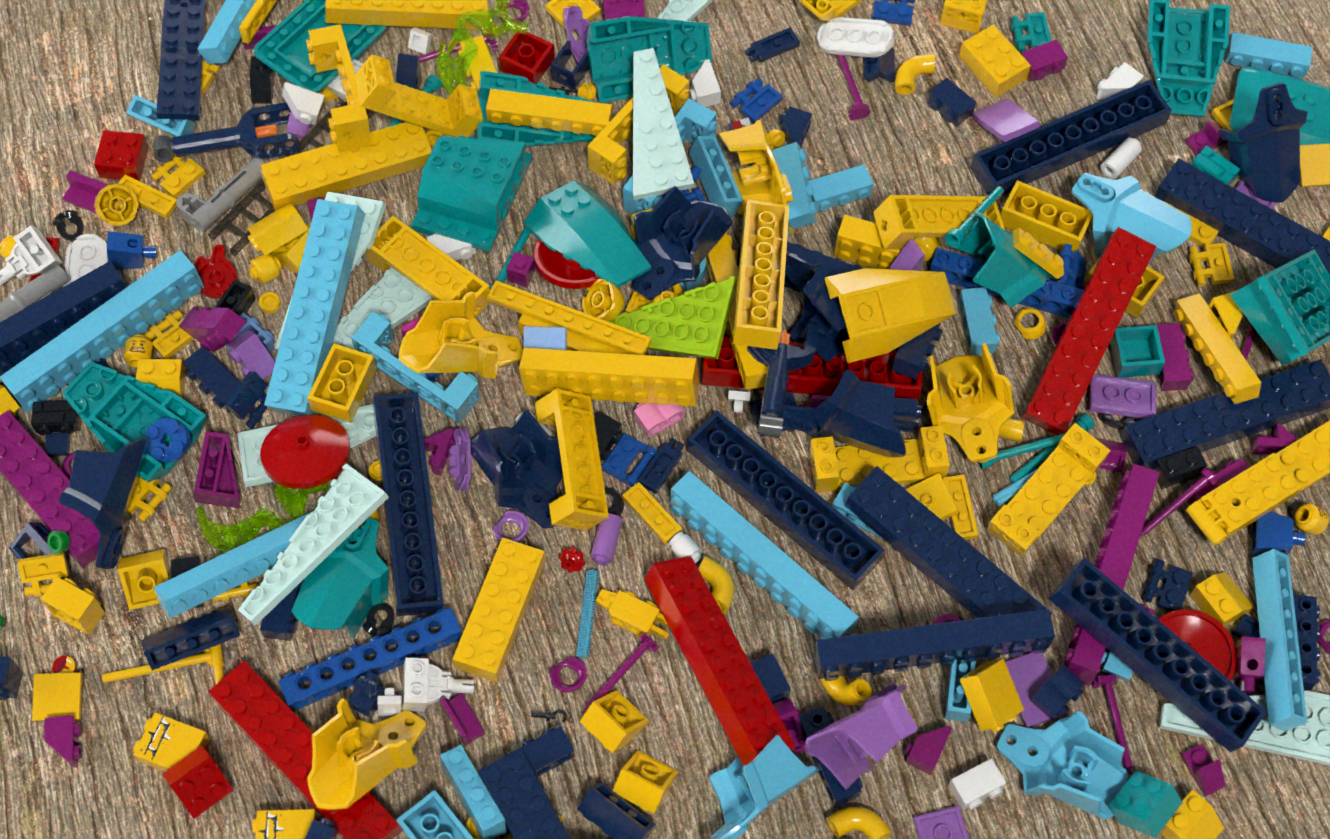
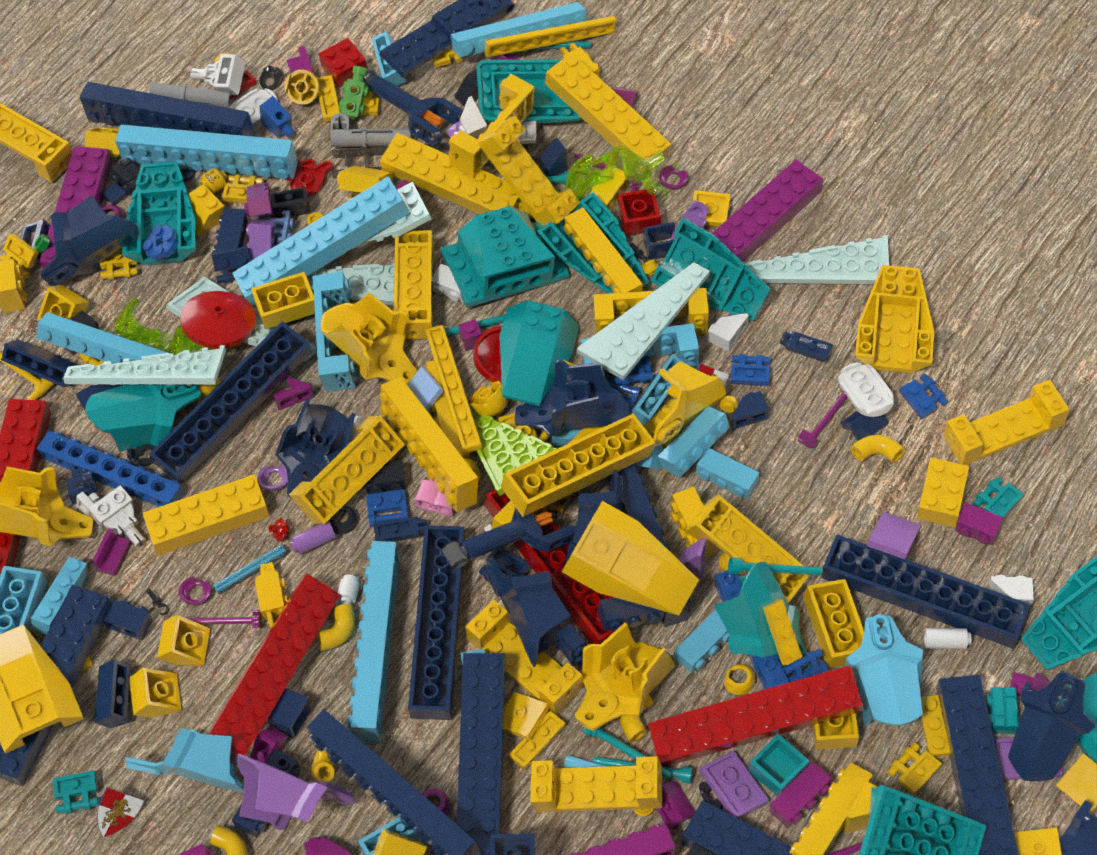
camera: 55 degrees right, 5 degrees down
(173, 175) = (357, 97): none -> bright green brick
(216, 474) = (165, 286): magenta wedge -> none
(265, 268) = (334, 197): yellow head -> none
(419, 40) = (593, 144): white tile -> none
(457, 452) = (293, 410): medium lavender piece -> none
(651, 513) = (357, 549): yellow plate -> none
(951, 102) = (876, 491): dark blue brick -> none

